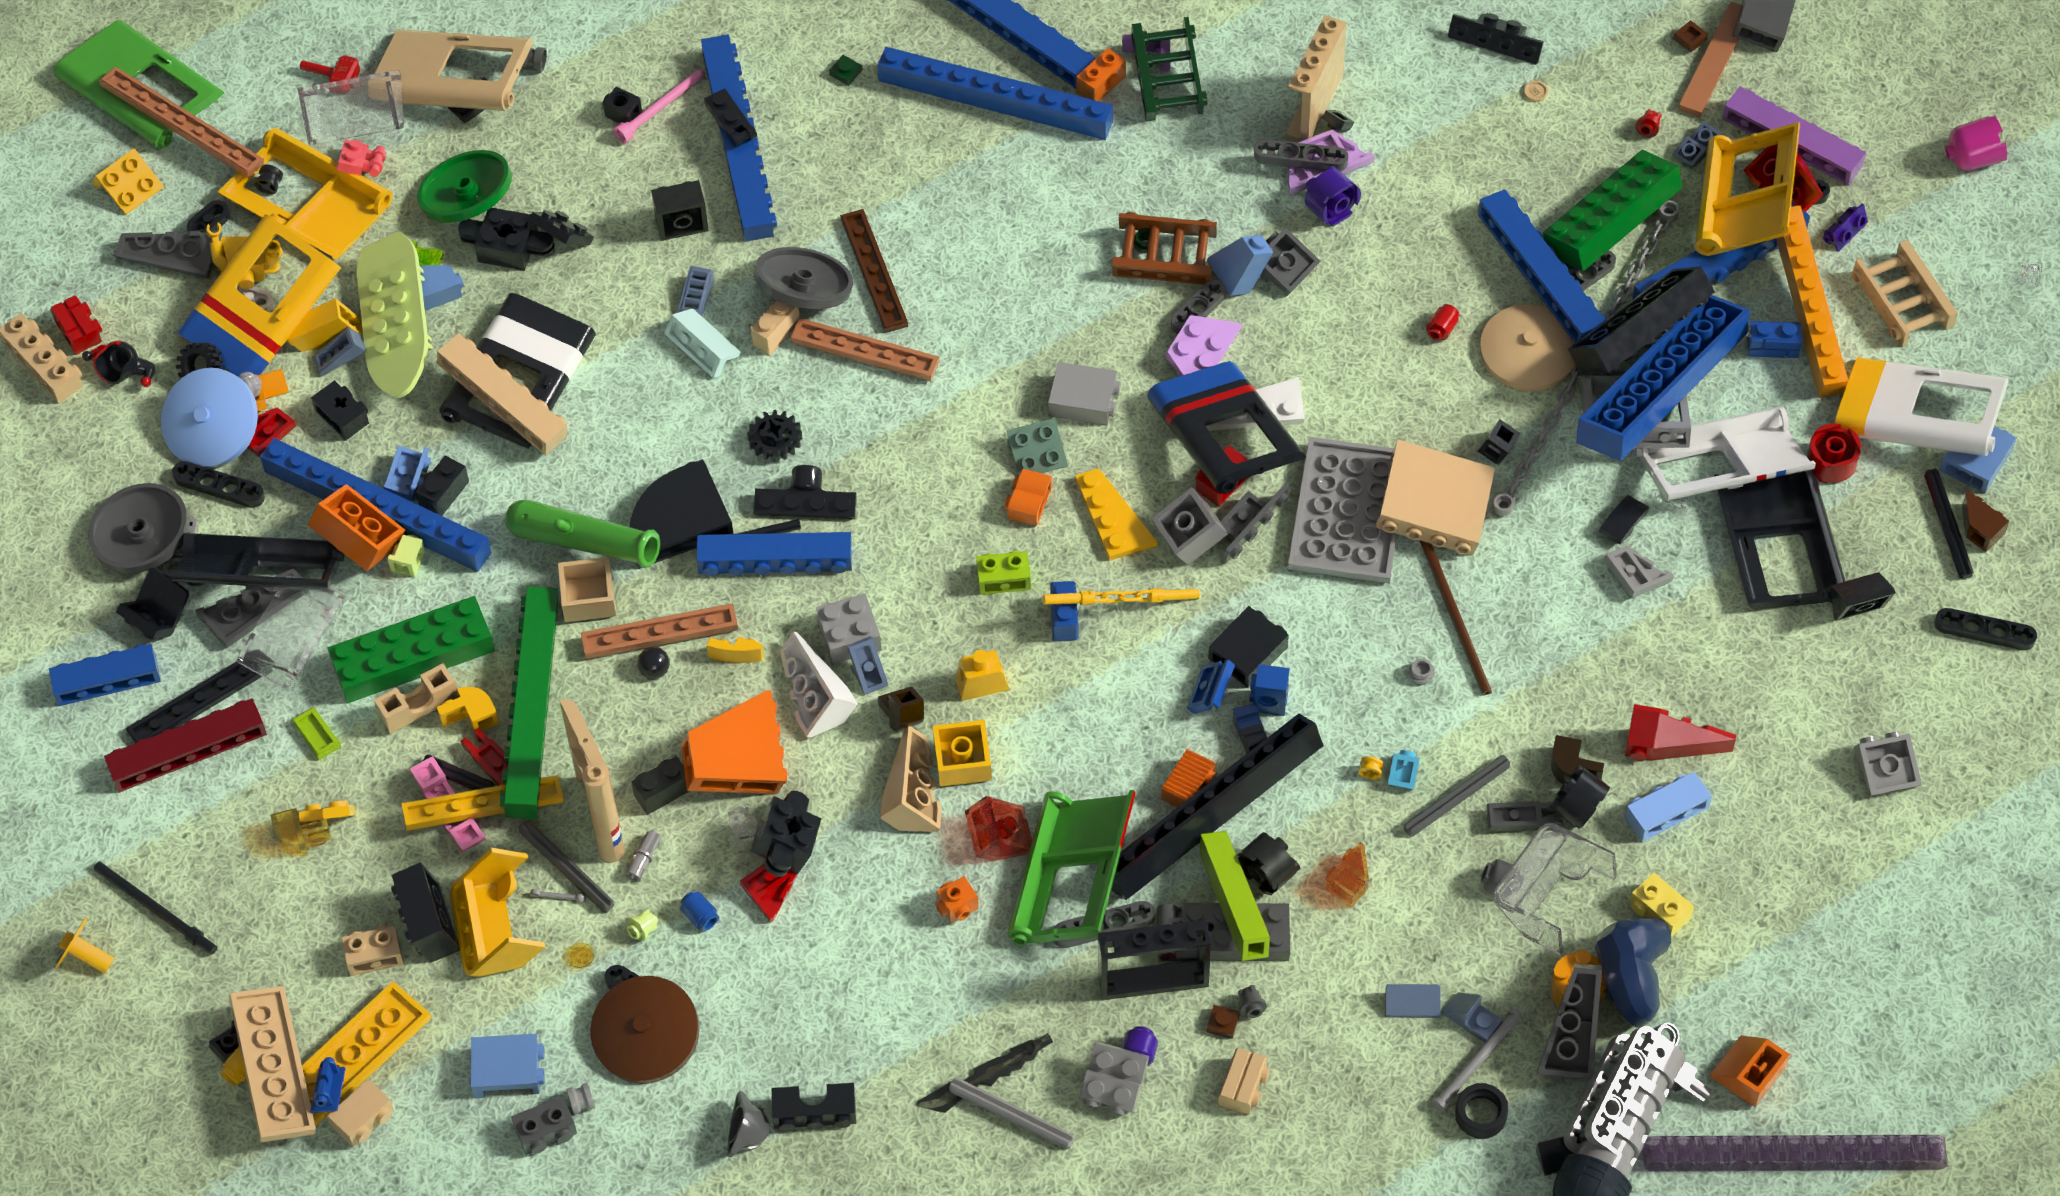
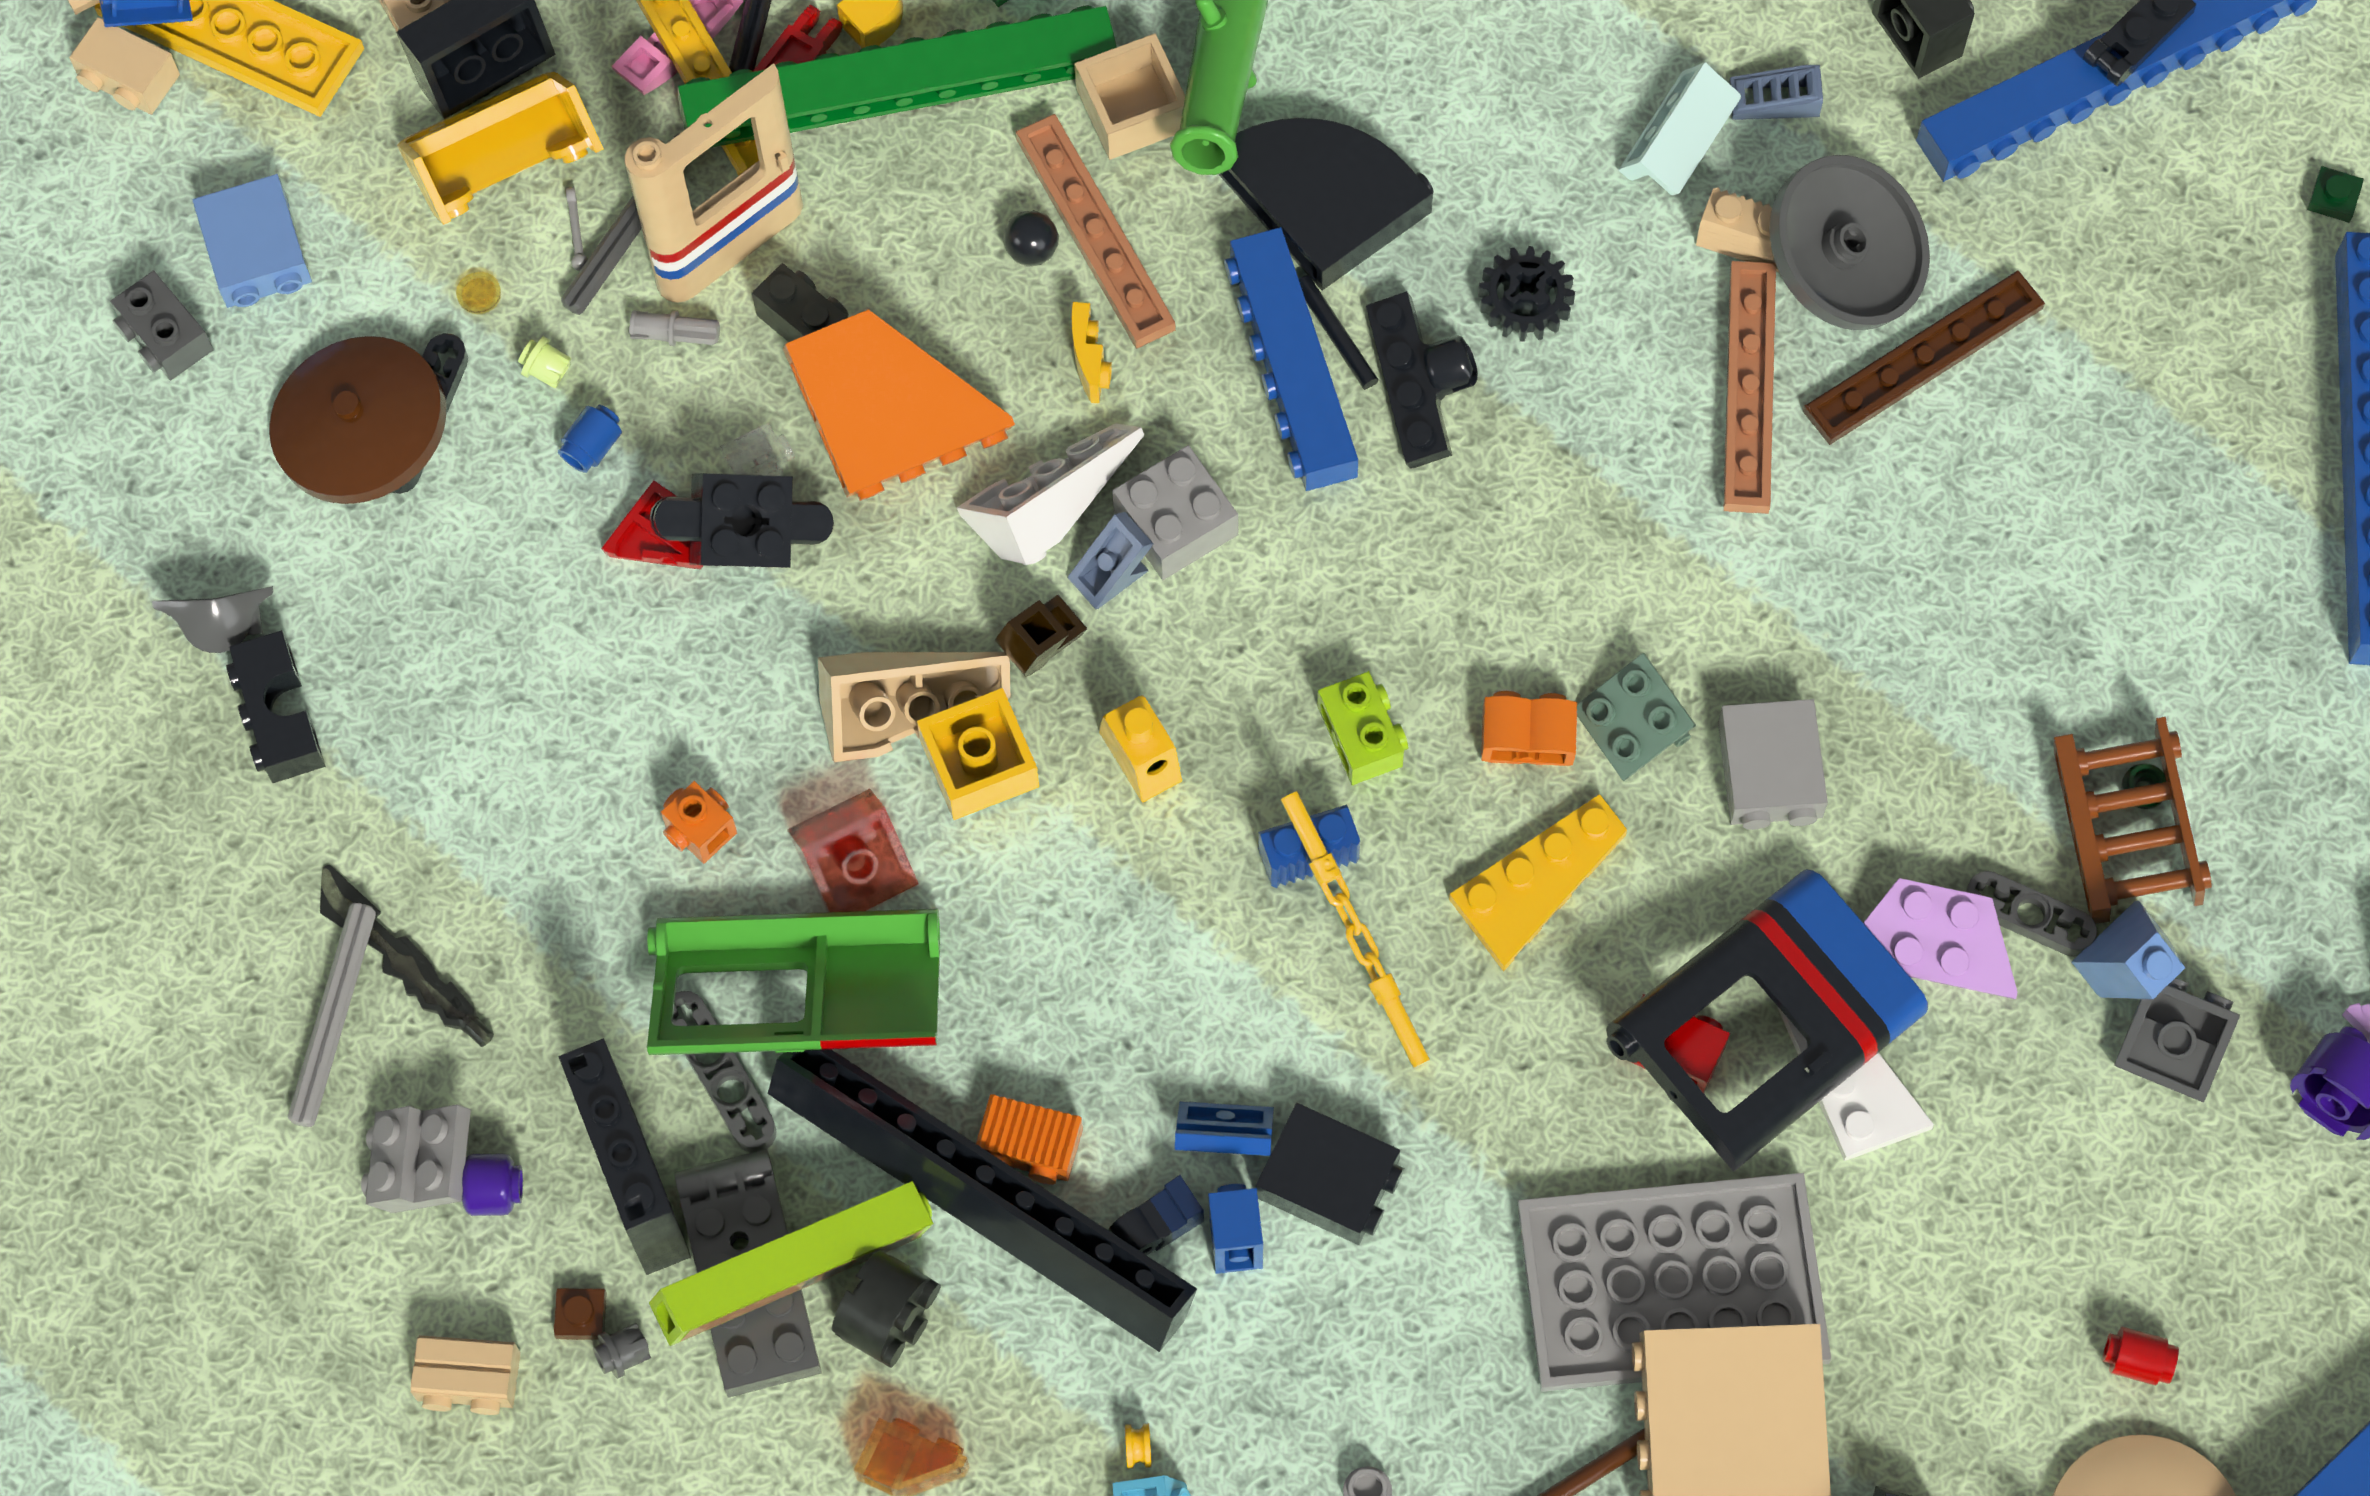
camera: 75 degrees right, 10 degrees up
(580, 1098) = (219, 363): light grey wheel -> none
(1189, 526) = (1536, 1008): light grey brick -> none
(1246, 517) = (1594, 1104): dark grey bracket -> none

